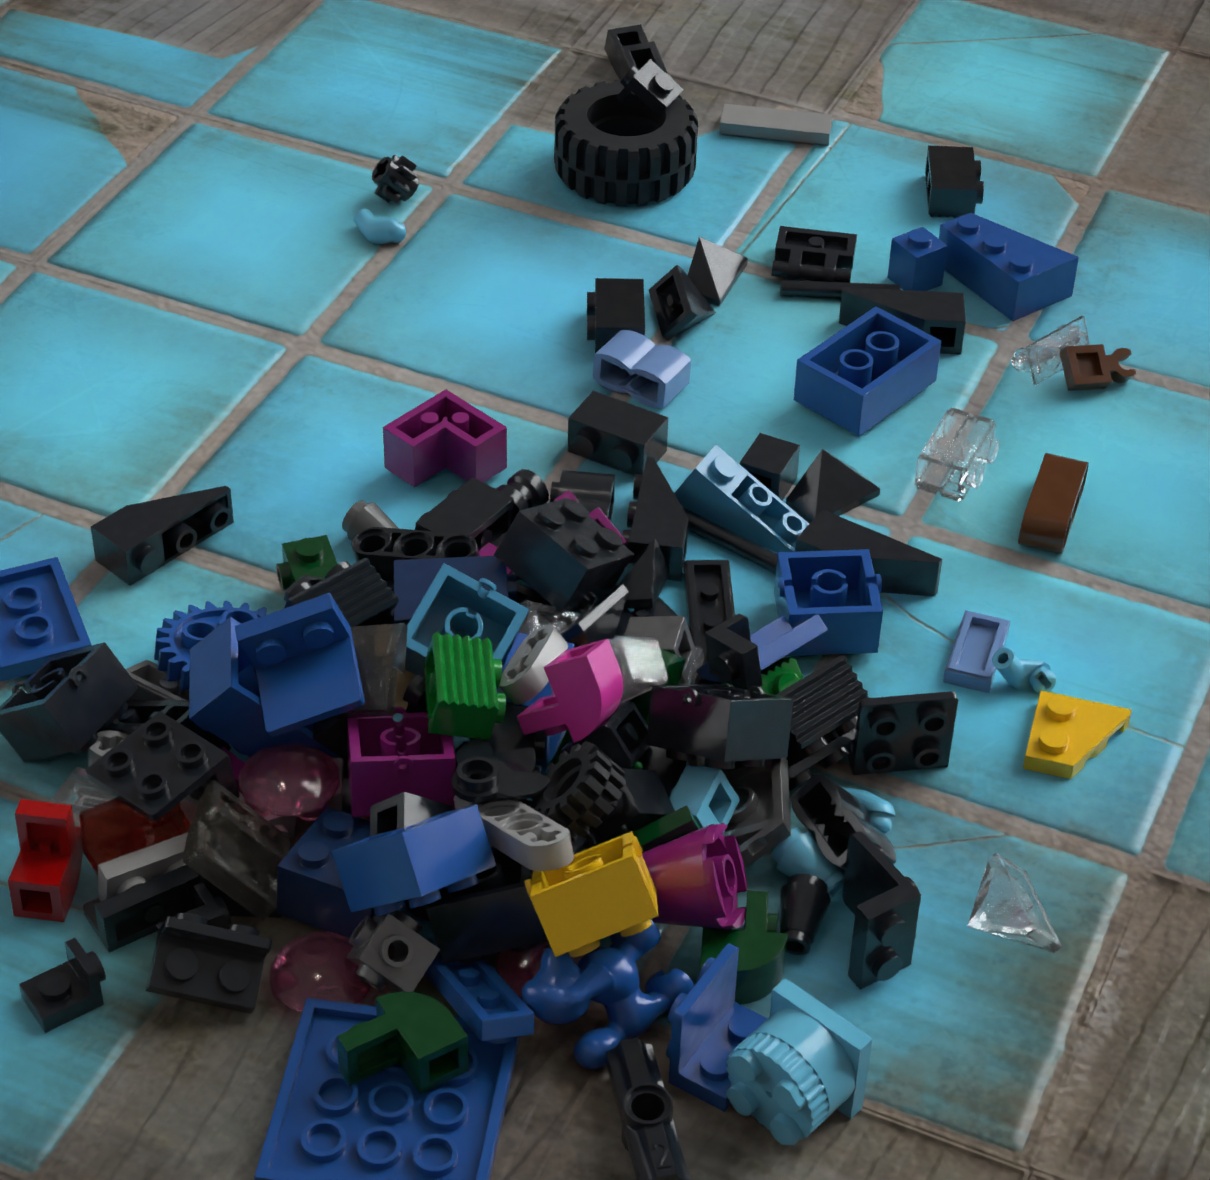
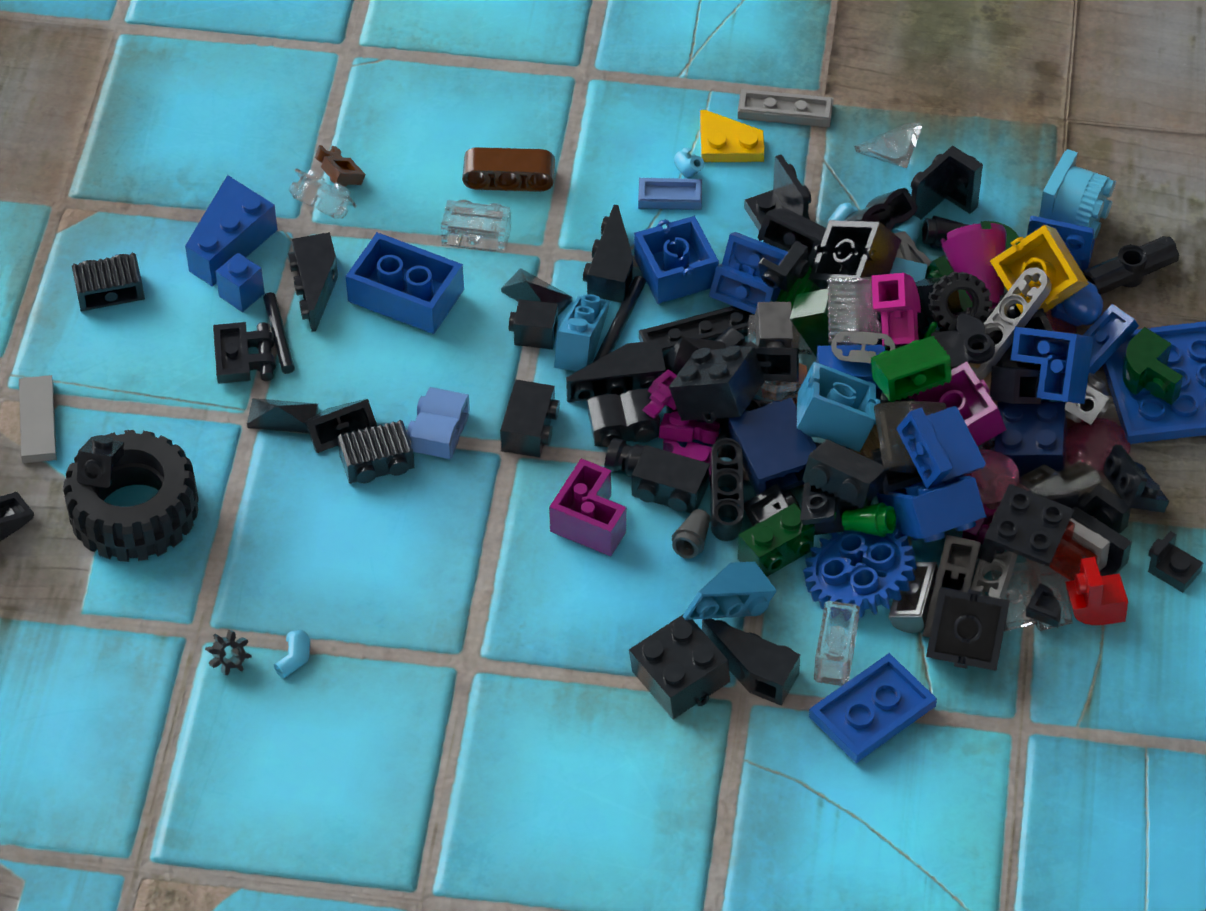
camera: 105 degrees left, 10 degrees up
(64, 792) = (1044, 606): none -> black tile
(125, 592) = (836, 643): none -> clear brick
(179, 458) = (679, 666): none -> black brick
(251, 513) = (734, 592): none -> dark azure slope
(1124, 813) = (785, 108): none -> light grey tile

